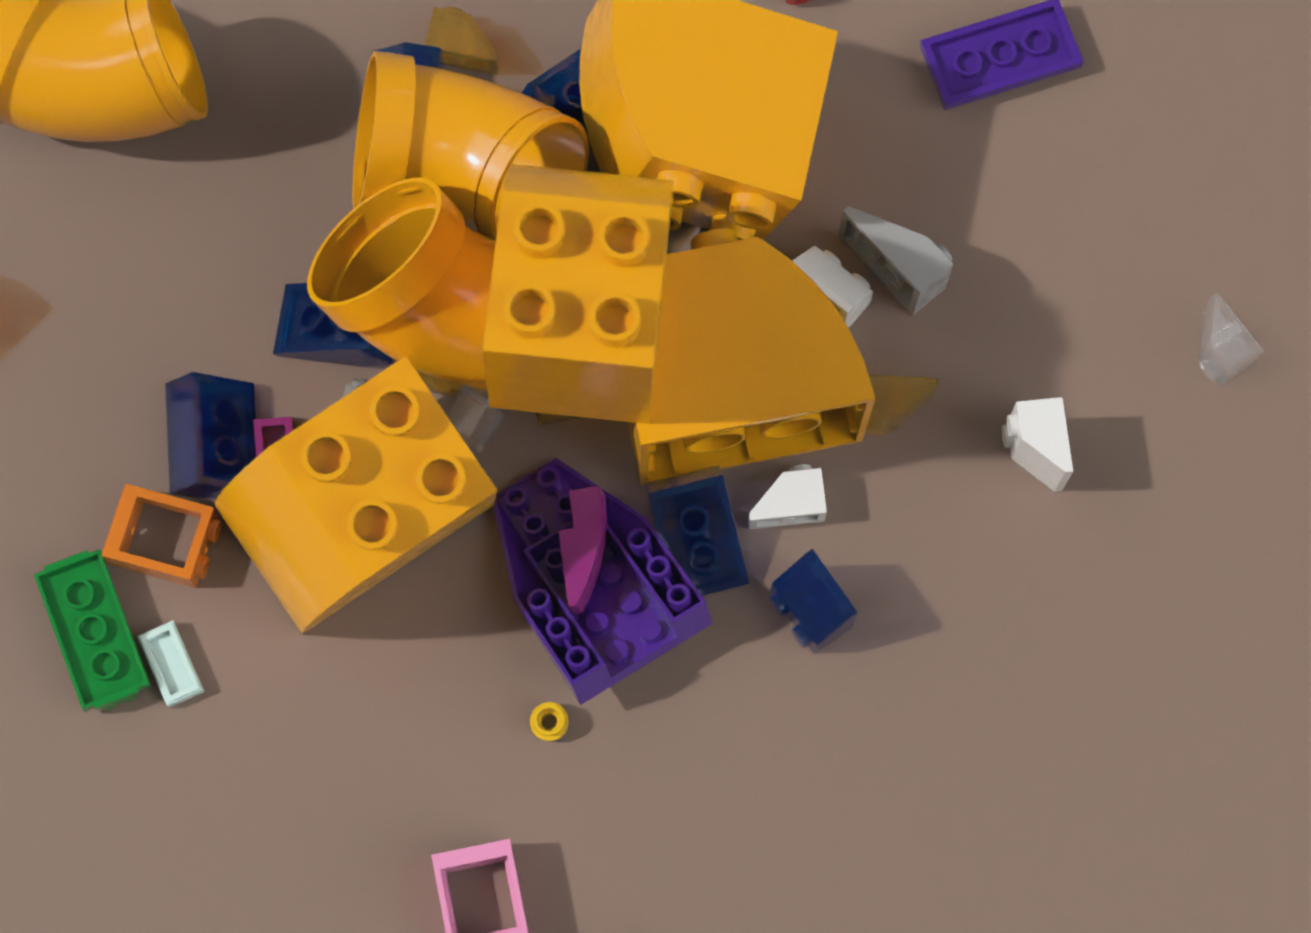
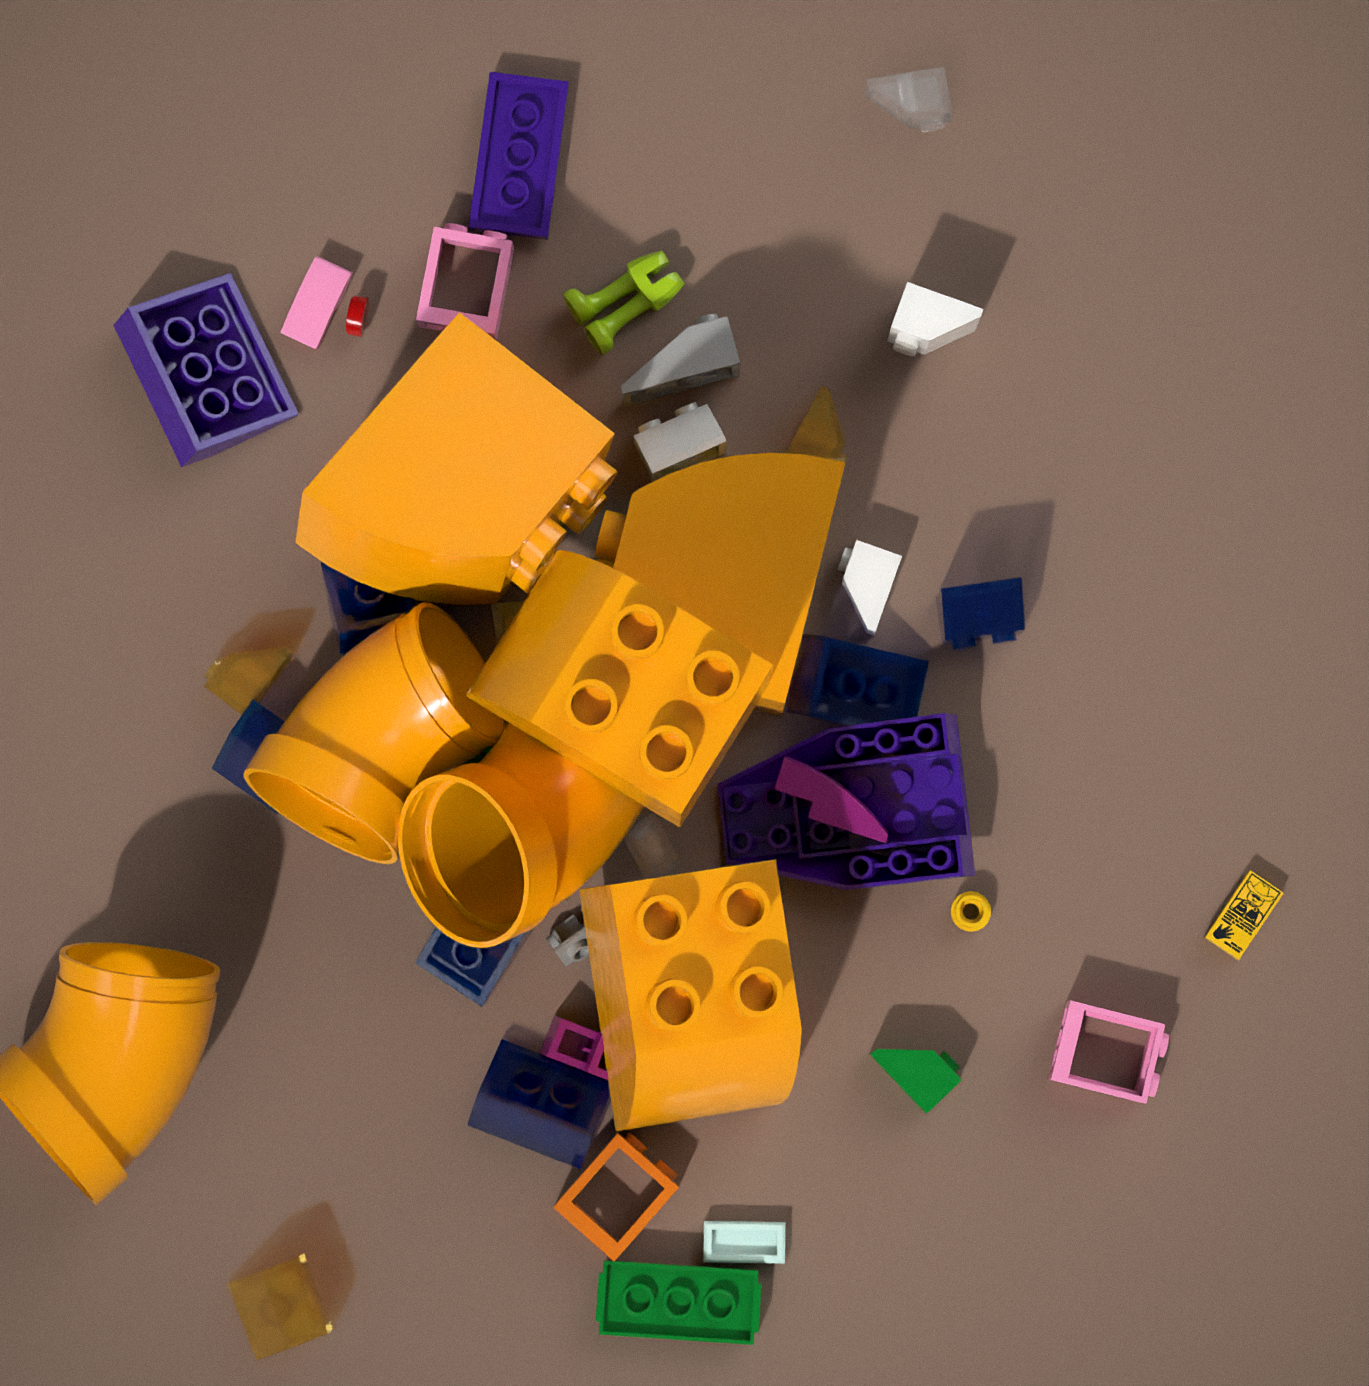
camera: 60 degrees left, 10 degrees up
(384, 742) = (920, 1073): none -> green slope
(852, 95) = (455, 234): none -> bright pink window
(954, 195) = (648, 296): none -> lime piece

